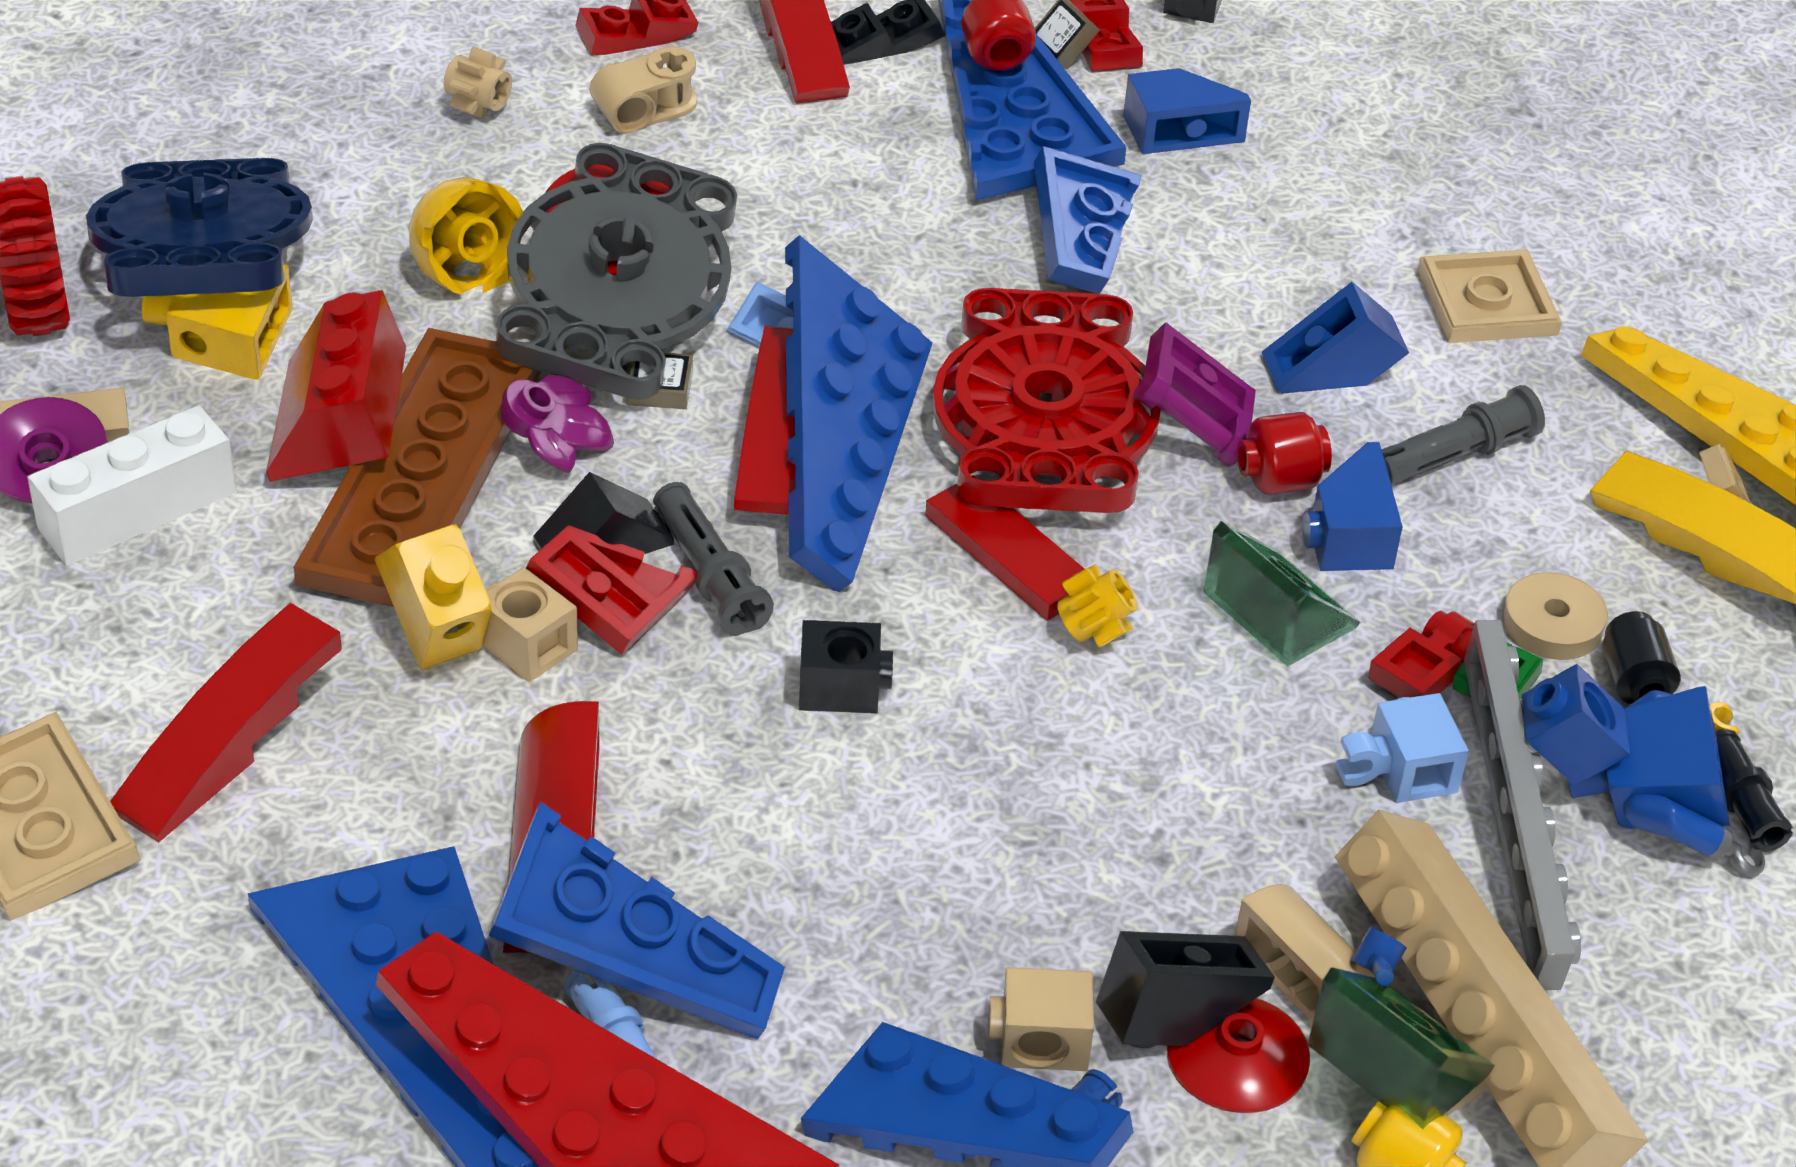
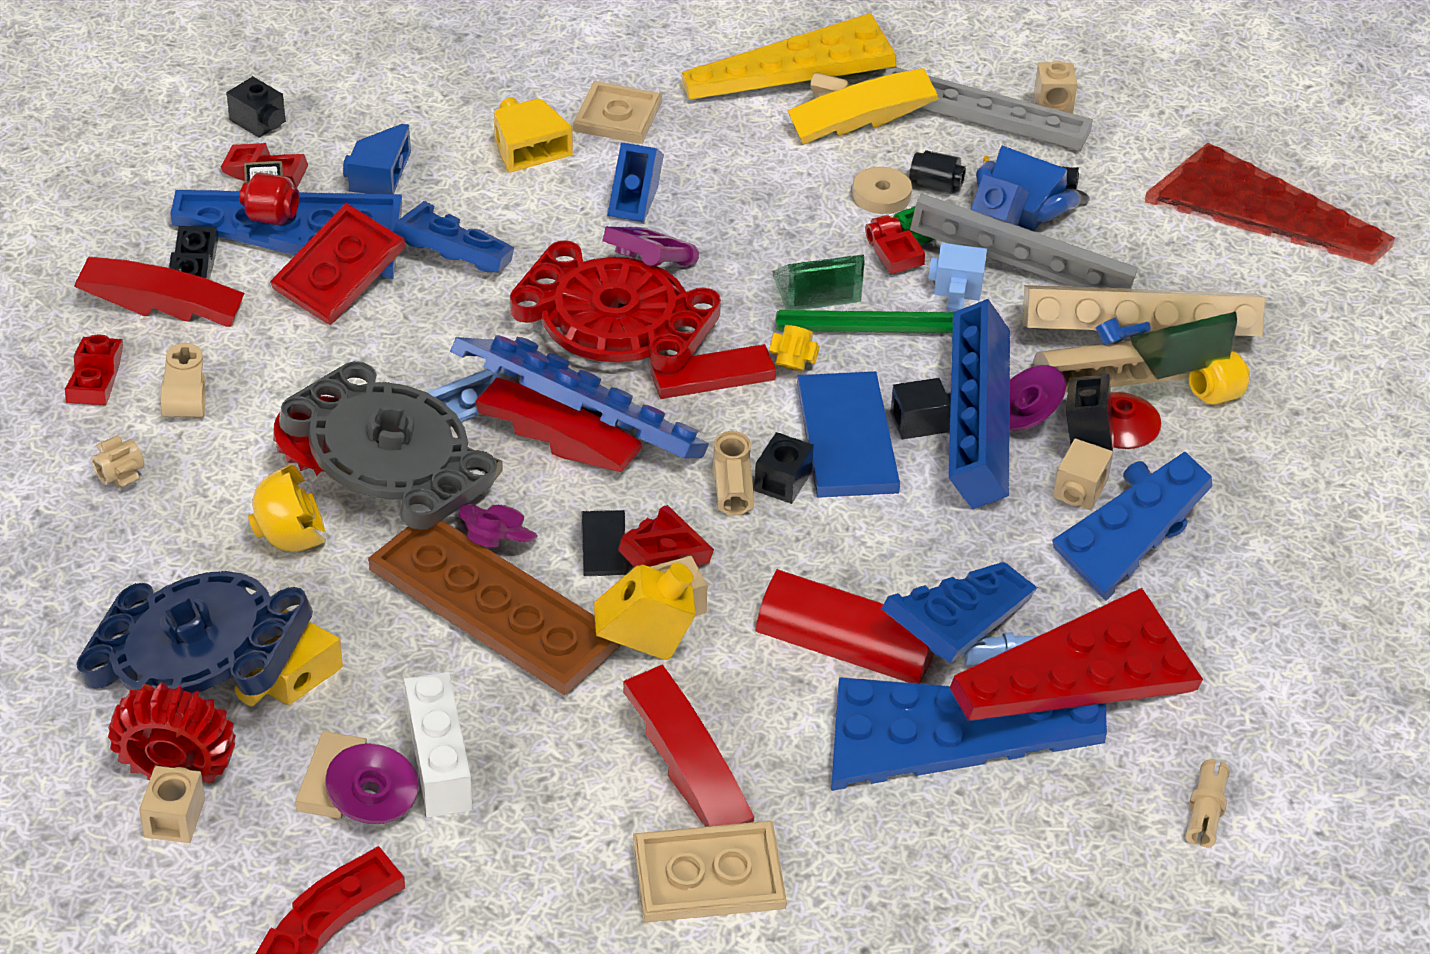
camera: 65 degrees left, 0 degrees up
(340, 389) = (414, 614): red slope -> none
(721, 573) = (677, 494): dark grey pin -> none
(775, 624) = (733, 473): none -> tan piece
(947, 135) = (338, 264): none -> red tile
(974, 725) = (849, 434): none -> blue tile
(1068, 783) = (920, 408): none -> black brick
(1109, 842) = (980, 405): none -> blue brick
(1176, 905) = (1035, 395): none -> magenta dish
(1241, 688) = (866, 321): none -> green axle
(1285, 453) = (716, 231): red head -> none
(1347, 219) = (530, 134): none -> yellow torso
(1355, 516) = (774, 225): blue slope -> none
(1479, 429) = (731, 157): dark grey pin -> none

